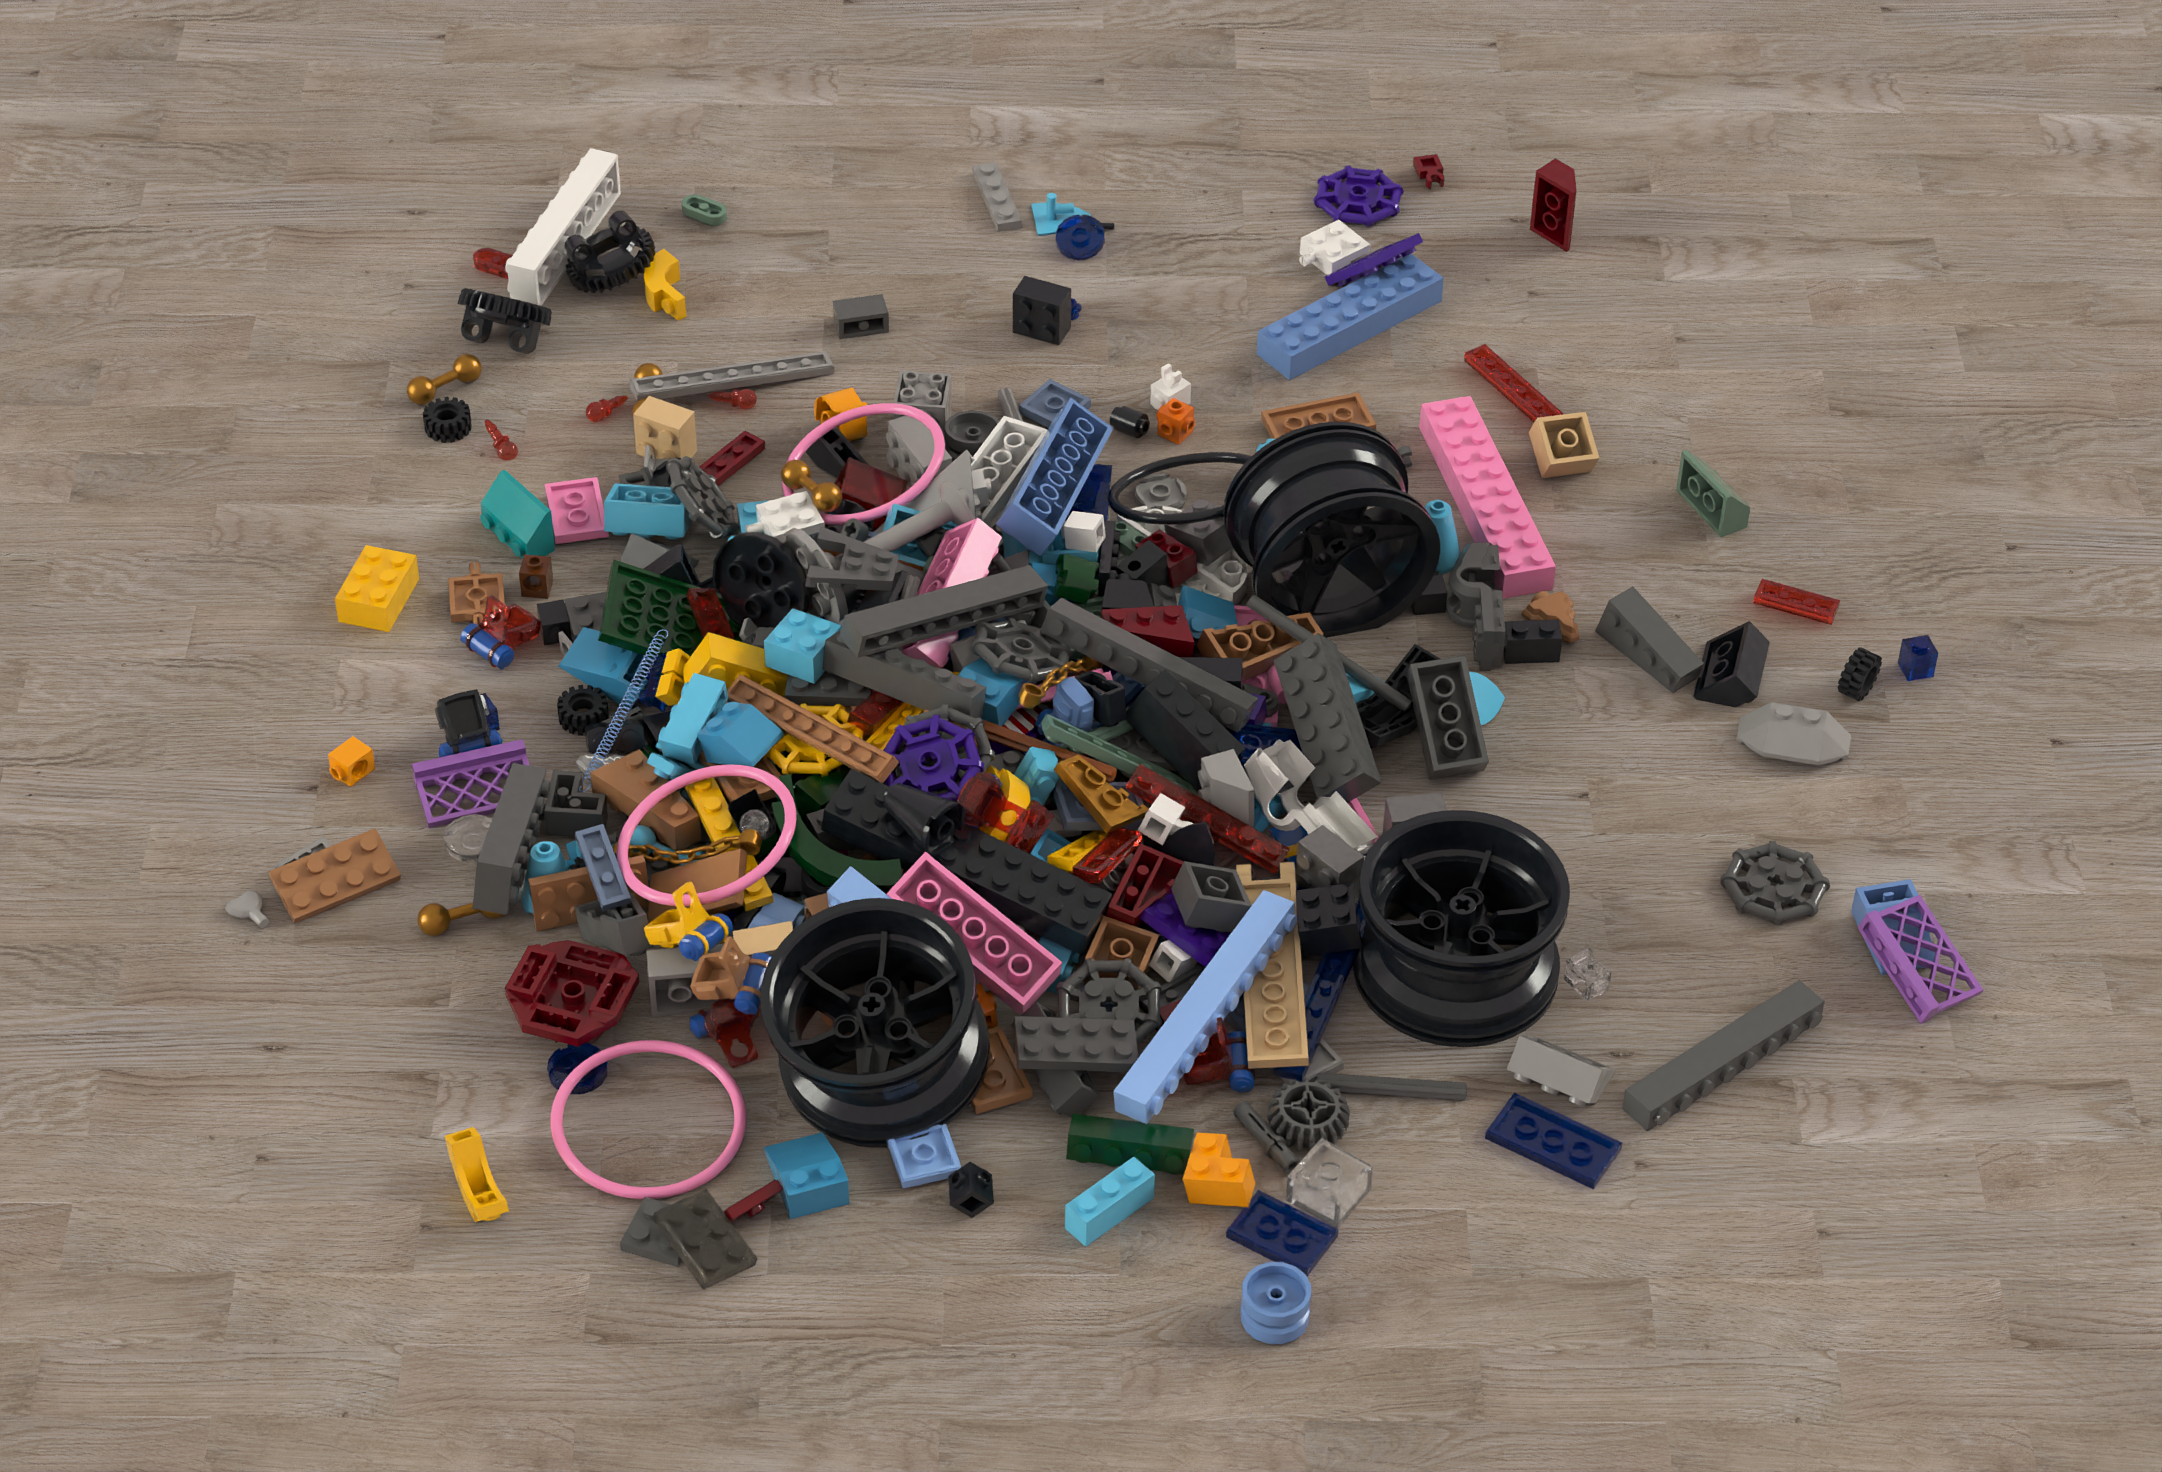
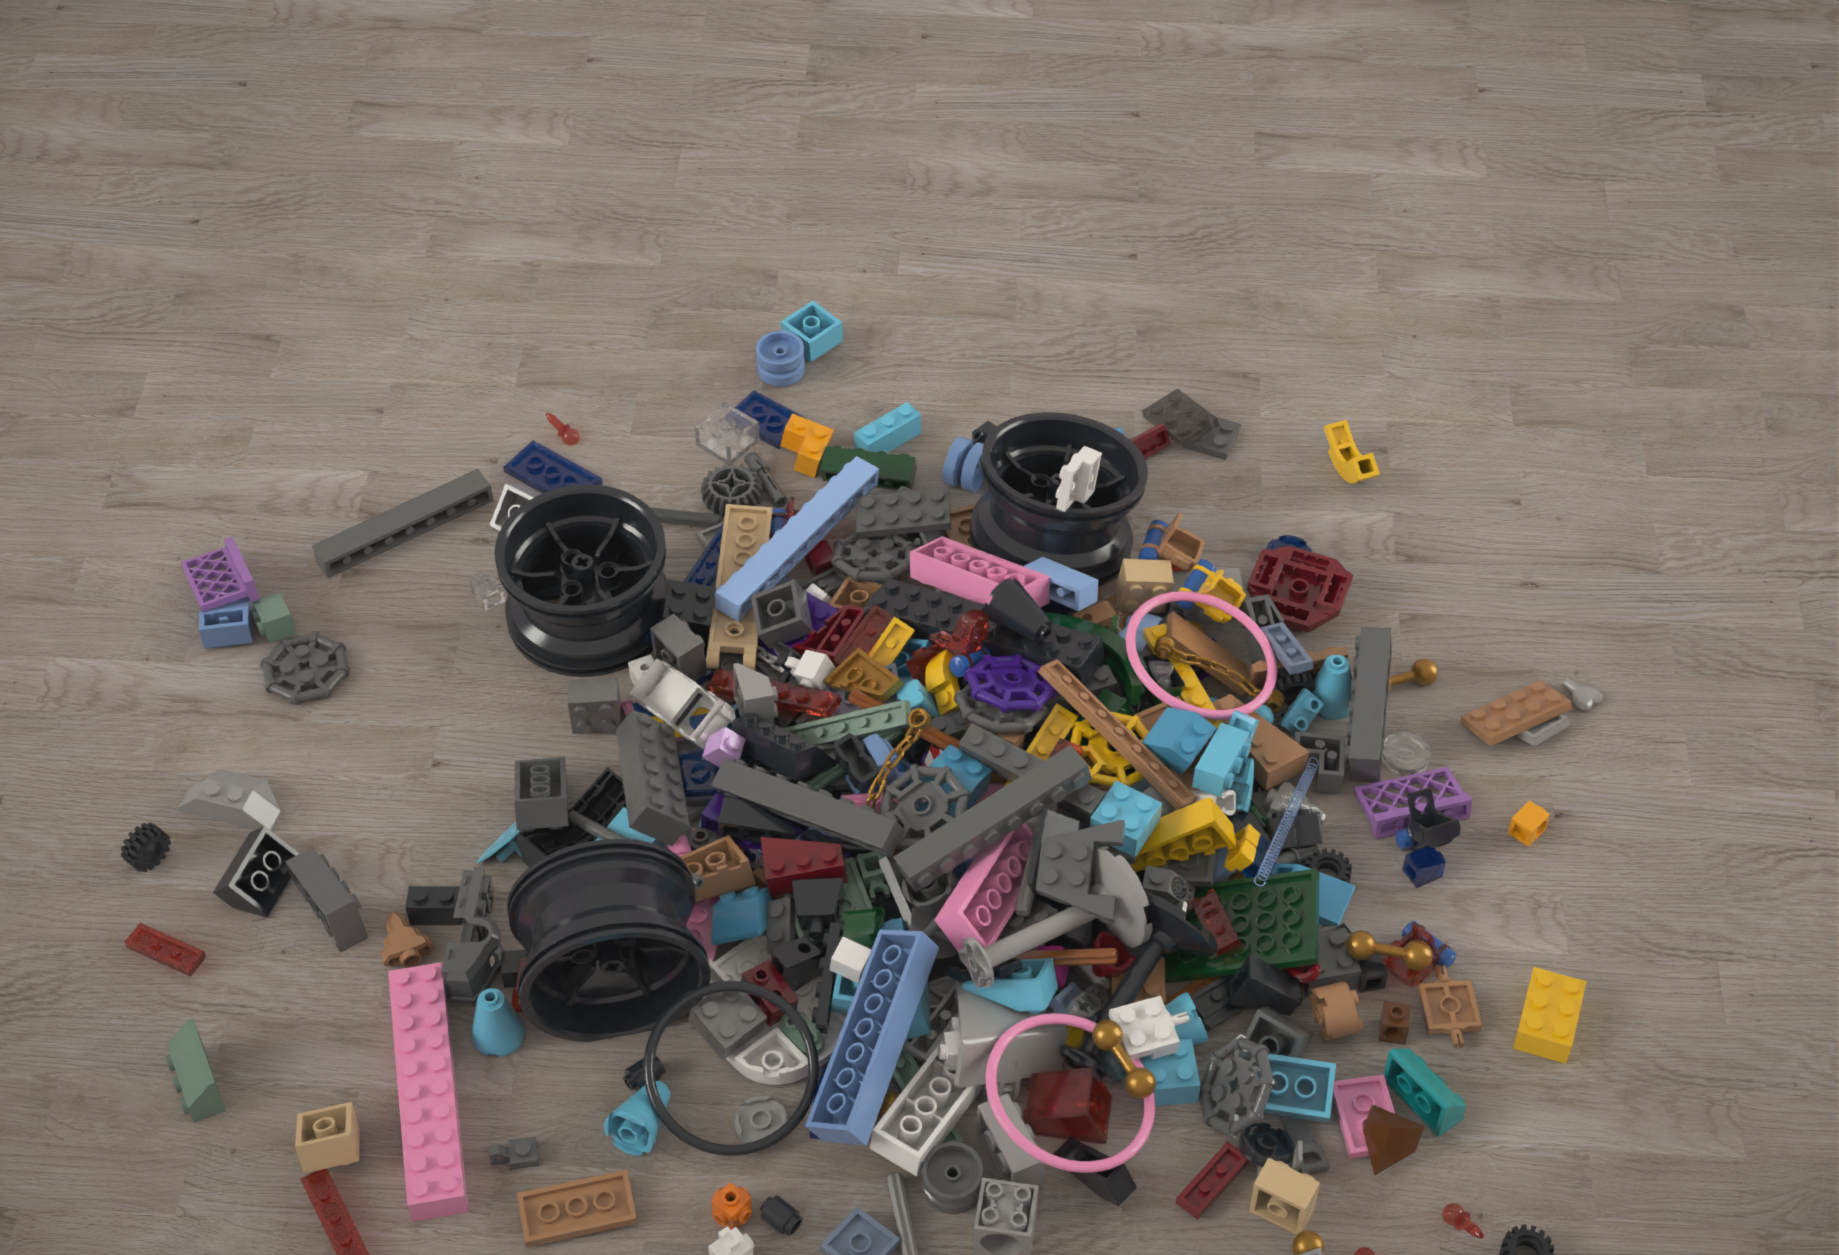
camera: 175 degrees left, 5 degrees up
(558, 472) = (1389, 1138): none -> reddish brown slope
(561, 604) = (1362, 945): none -> pearl gold piece
(592, 568) = (1335, 1011): none -> medium nougat brick
(660, 1191) = (1245, 462): bright pink piece -> none
(837, 403) = (1094, 1215): light orange brick -> none
(850, 910) = (1078, 478): none -> white plate
(998, 1138) = (964, 465): none -> medium blue wheel
(1237, 1350) = (816, 328): none -> medium azure brick
(1251, 731) = (723, 745): none -> lavender brick
(1549, 1198) = (569, 435): none -> clear red bar
(1832, 920) = (273, 618): none -> sand green brick
(1918, 657) = (81, 873): clear blue brick -> none

